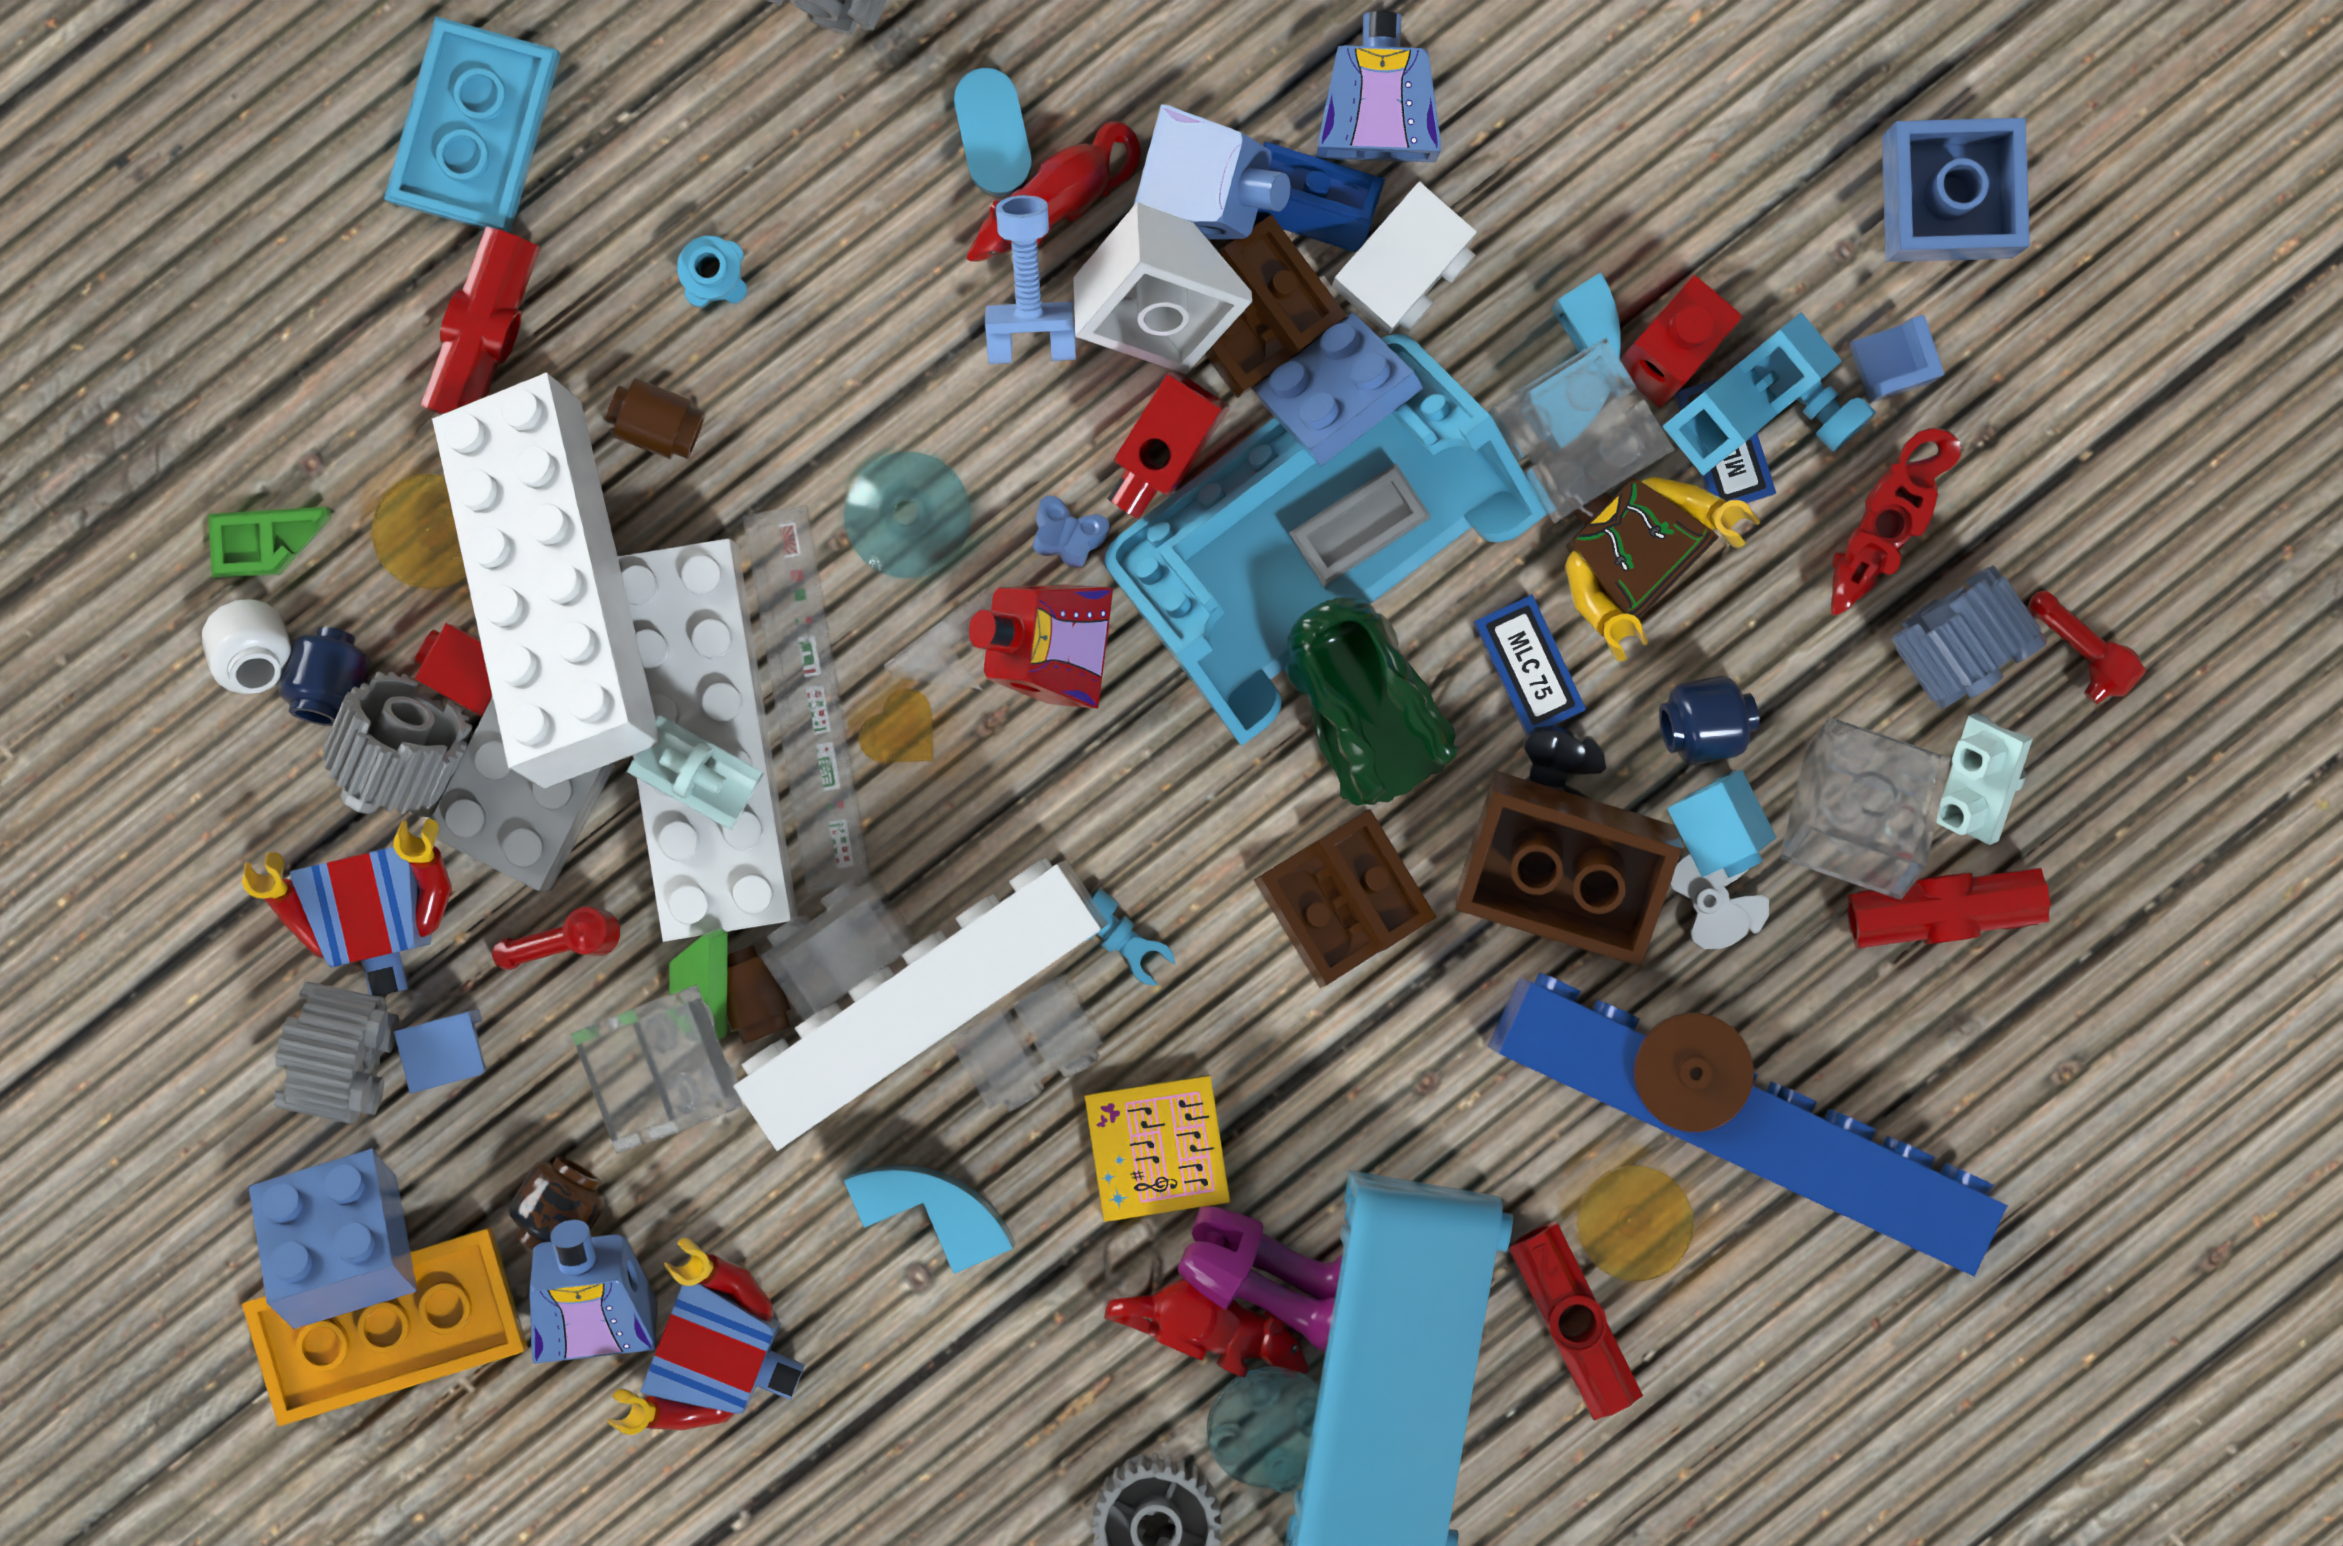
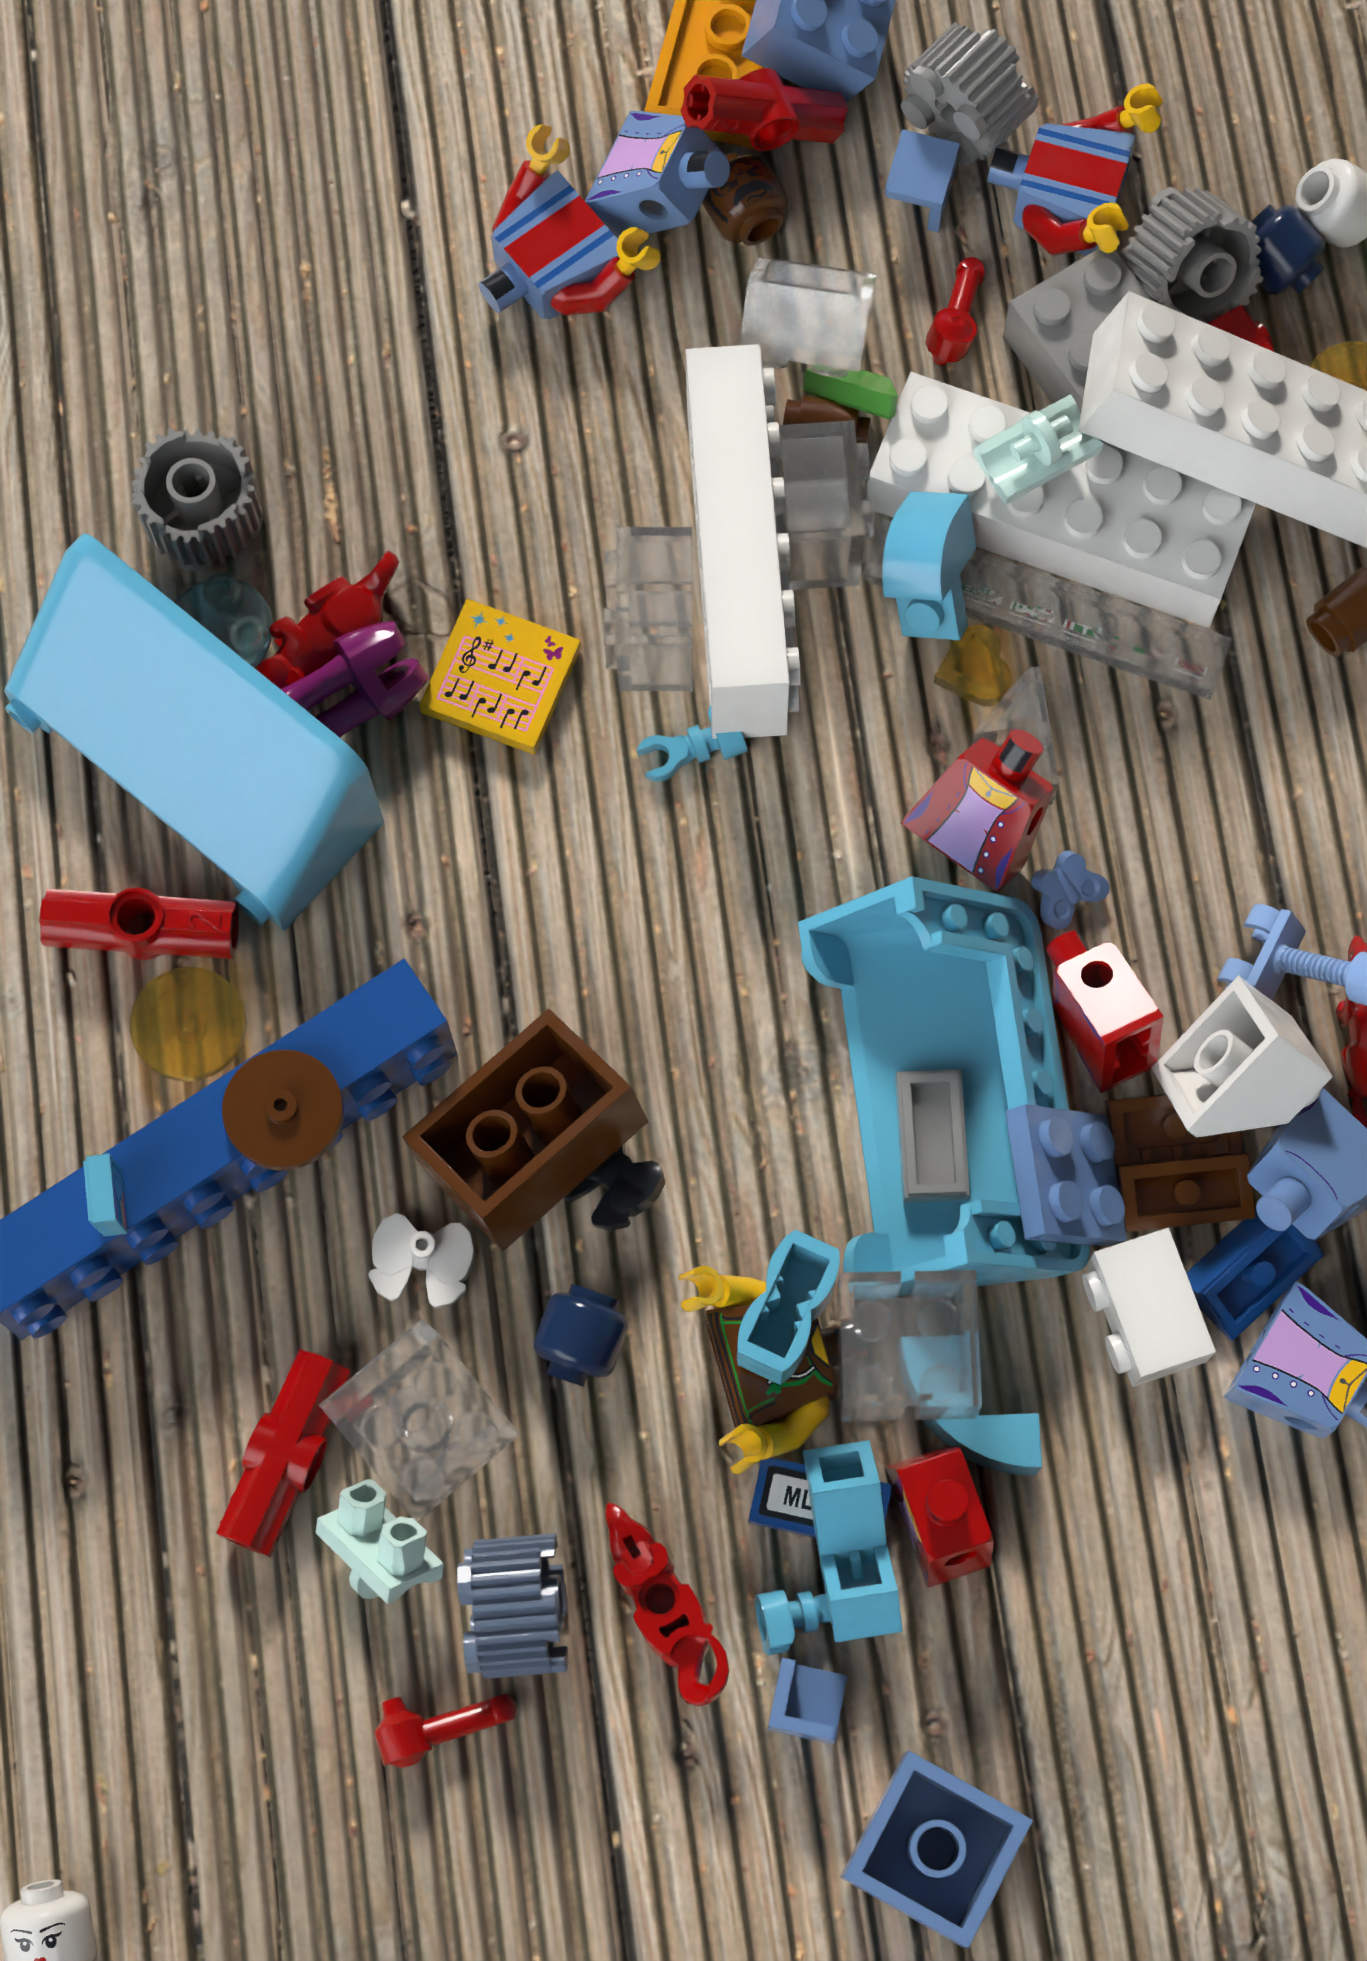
camera: 120 degrees right, 15 degrees down
(470, 1231) = (763, 109): none -> red piece
(839, 823) = (924, 560): none -> medium azure brick
(929, 540) = (1153, 800): clear light blue dish -> none
(961, 1217) = (547, 488): medium azure brick -> none
(1345, 898) = (614, 943): reddish brown slope -> none
(1366, 702) = (773, 1045): dark green hair -> none
(1529, 665) = (722, 1214): tile -> none
(1625, 549) = (780, 1319): none -> medium azure brick
(1723, 825) = (480, 1287): medium azure brick -> none
(1861, 1171) = (105, 1195): none -> medium azure tile

